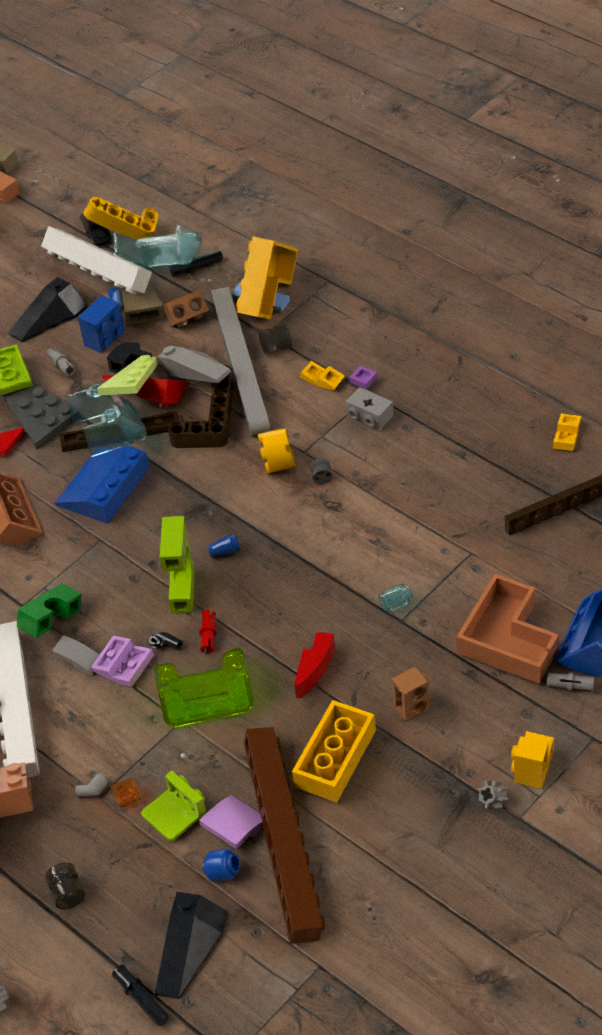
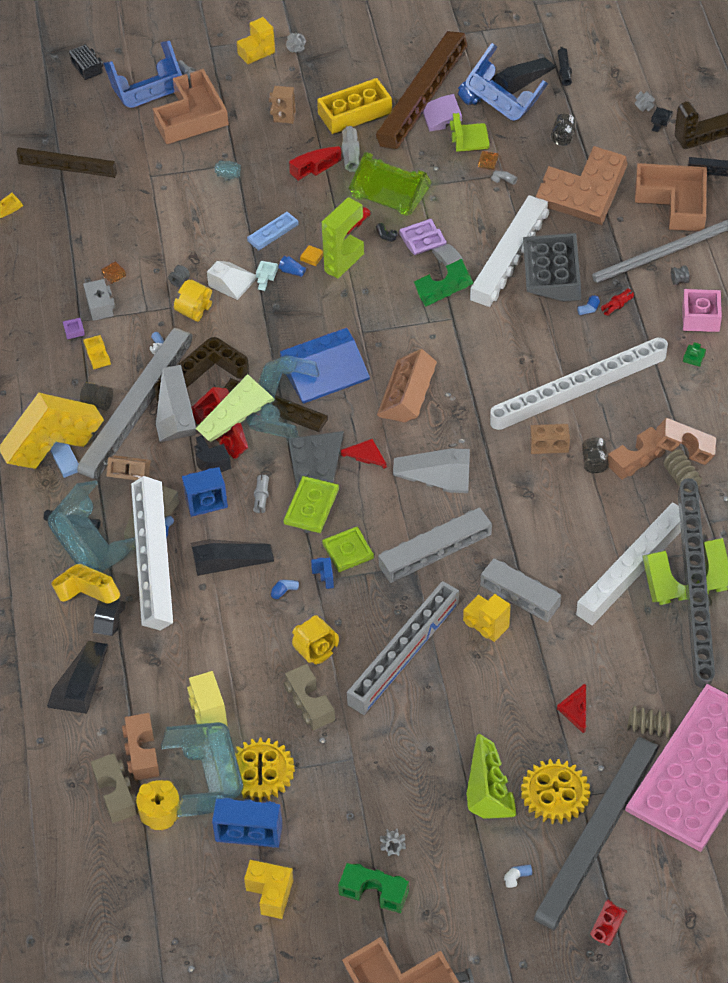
camera: 145 degrees left, 5 degrees up
(76, 185) = (78, 683): none -> black wedge
(160, 879) = (480, 83): none -> windscreen
(218, 573) = (312, 255): none -> light orange tile
(243, 526) = (265, 272): none -> light aqua plate
(272, 501) = (229, 279): none -> white slope
(274, 413) = (157, 338): none -> arm
(284, 574) = (272, 231): none -> light blue tile
(291, 705) = (350, 149): none -> light grey piece
(390, 444) = (113, 272): none -> clear orange plate

